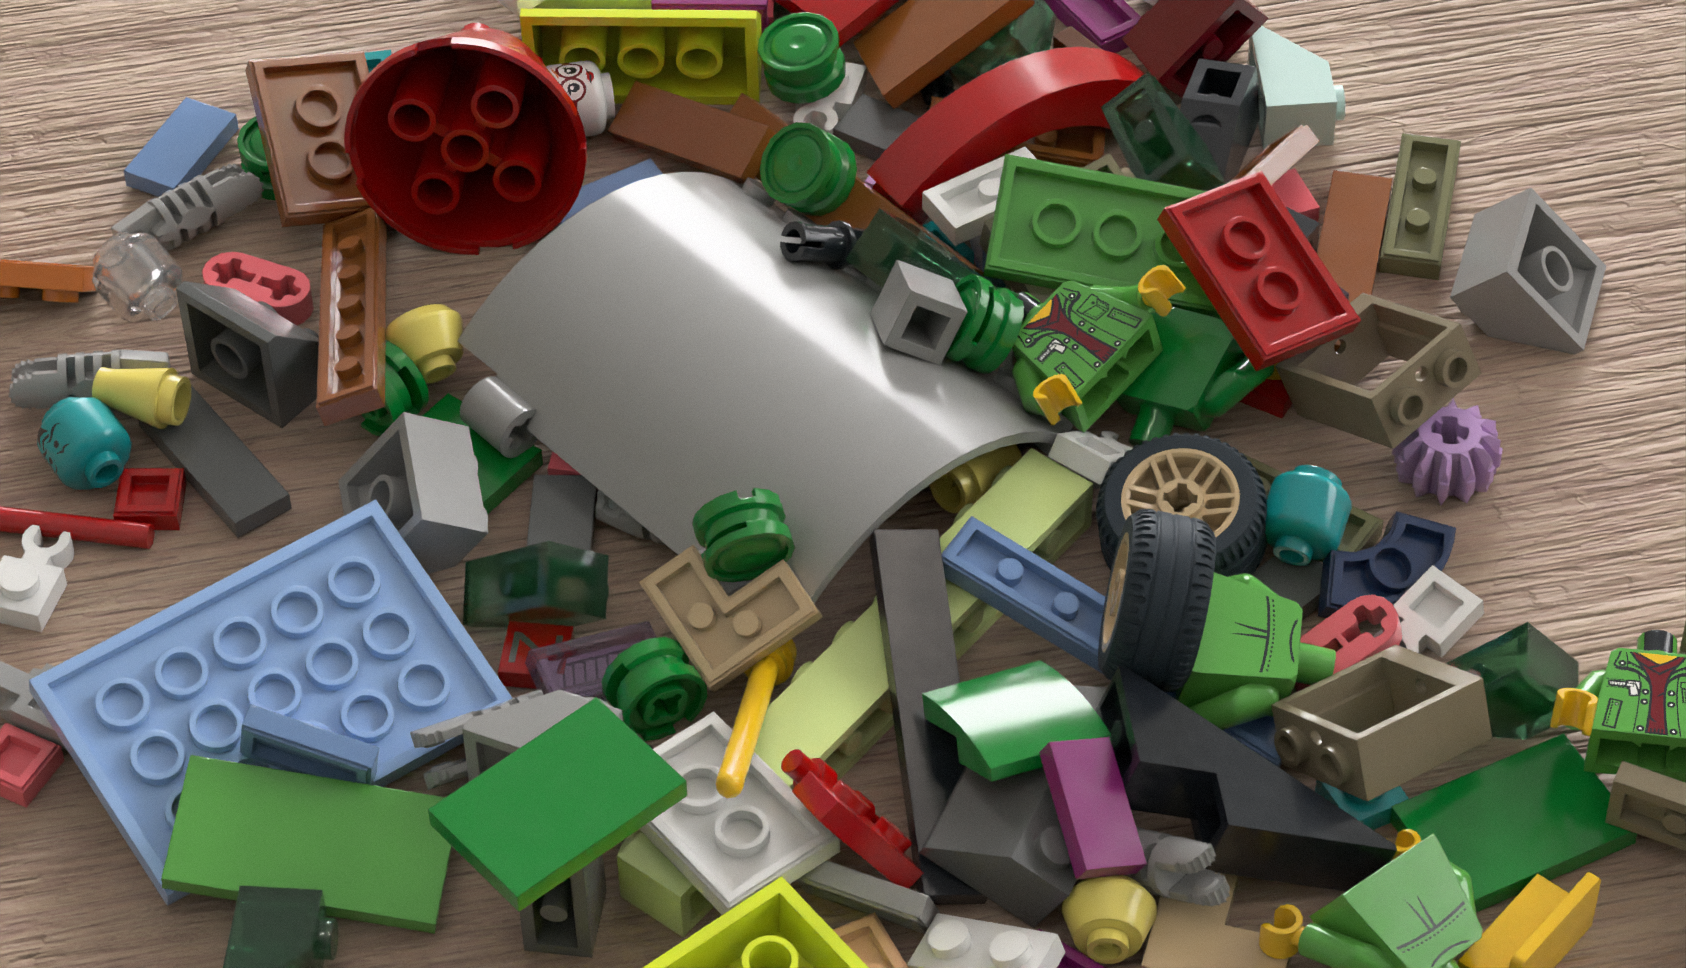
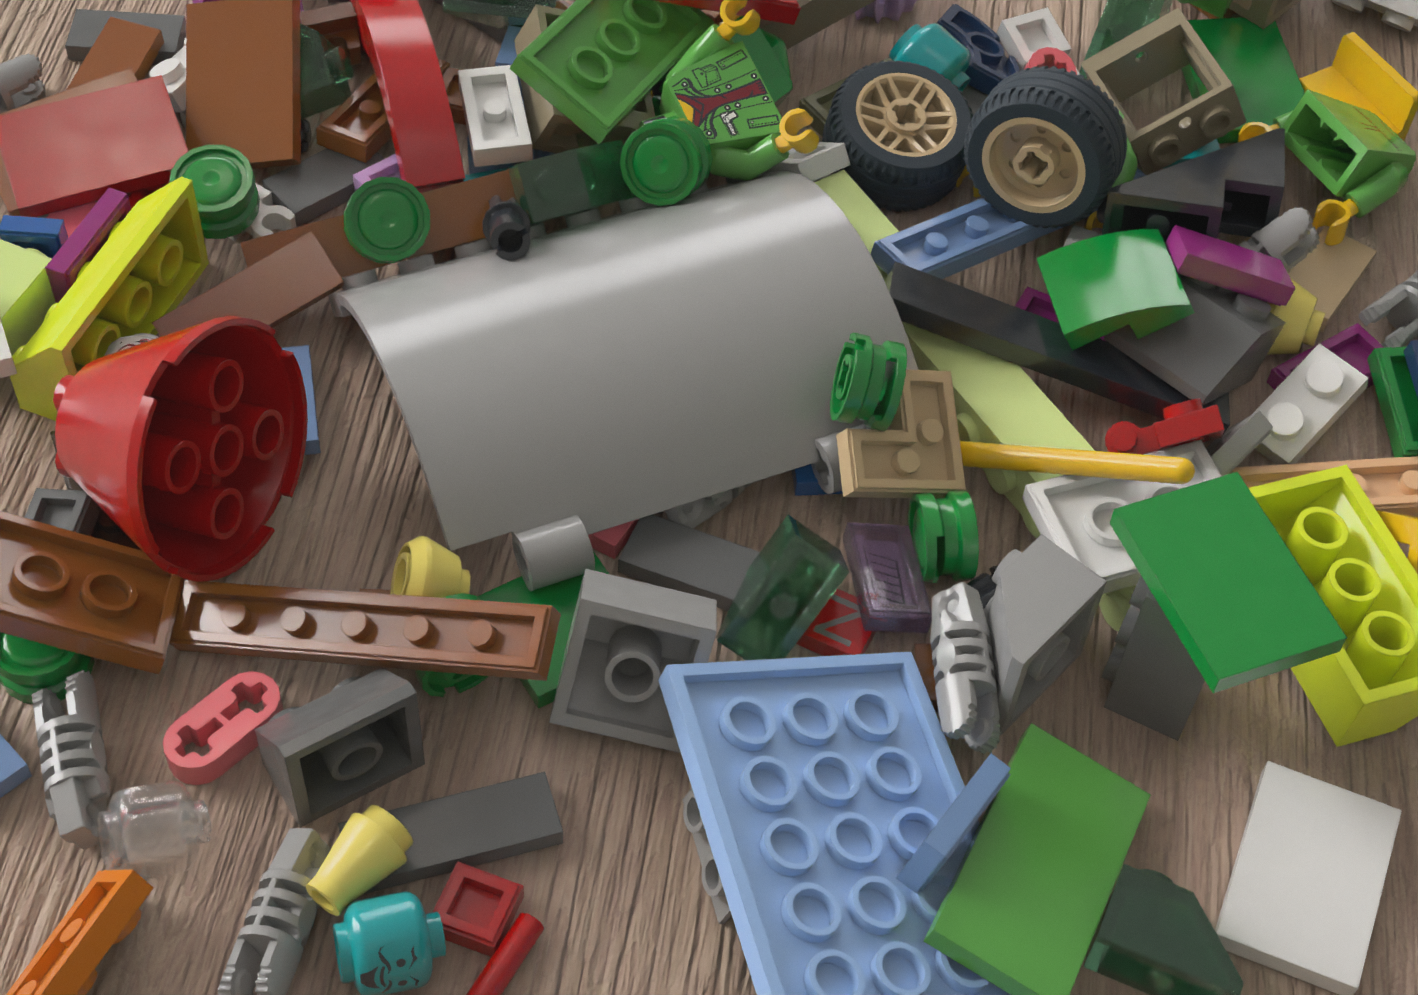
camera: 75 degrees left, 5 degrees up
(918, 312) = (645, 186): light grey brick -> none

